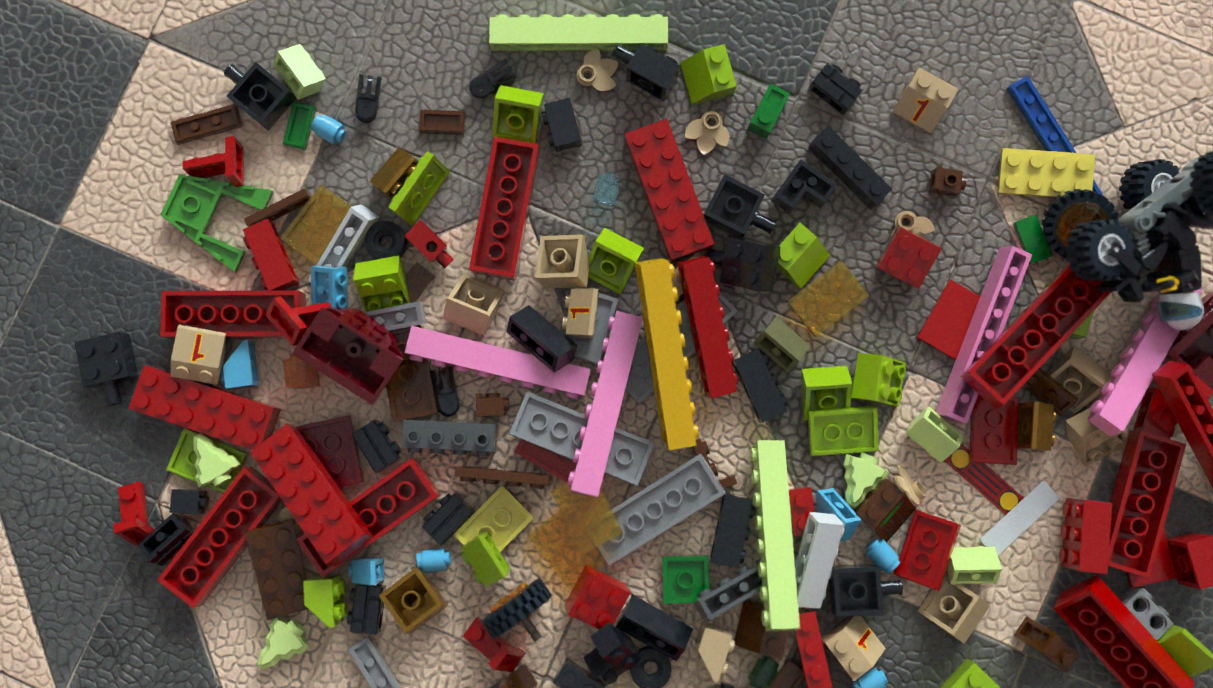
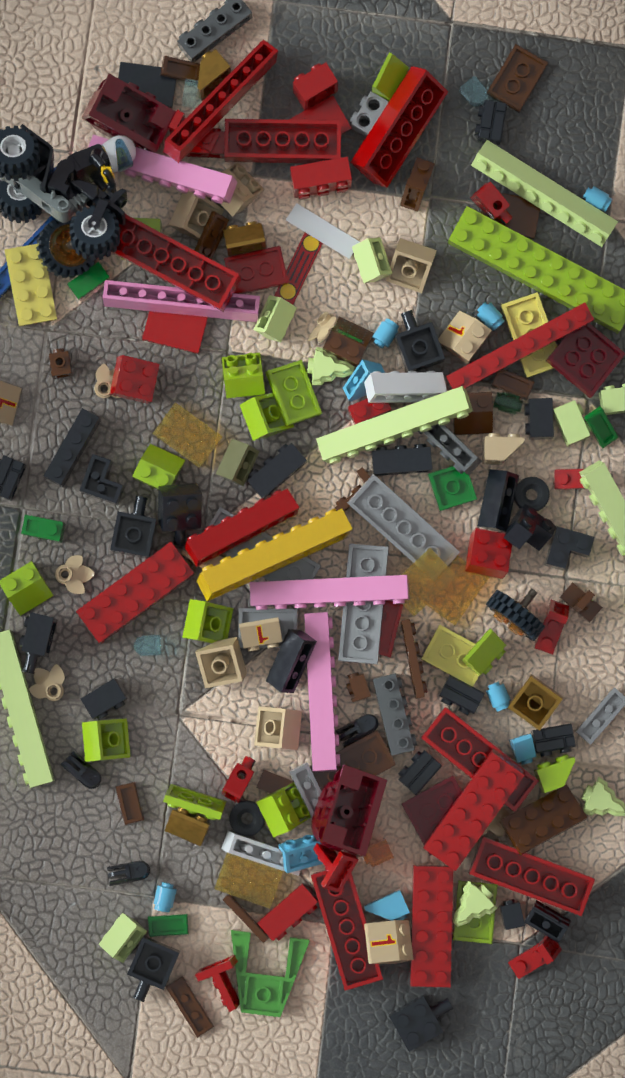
camera: 110 degrees left, 0 degrees up
(504, 208) = (190, 725): red brick -> none
(927, 549) = (370, 299): red tile -> none

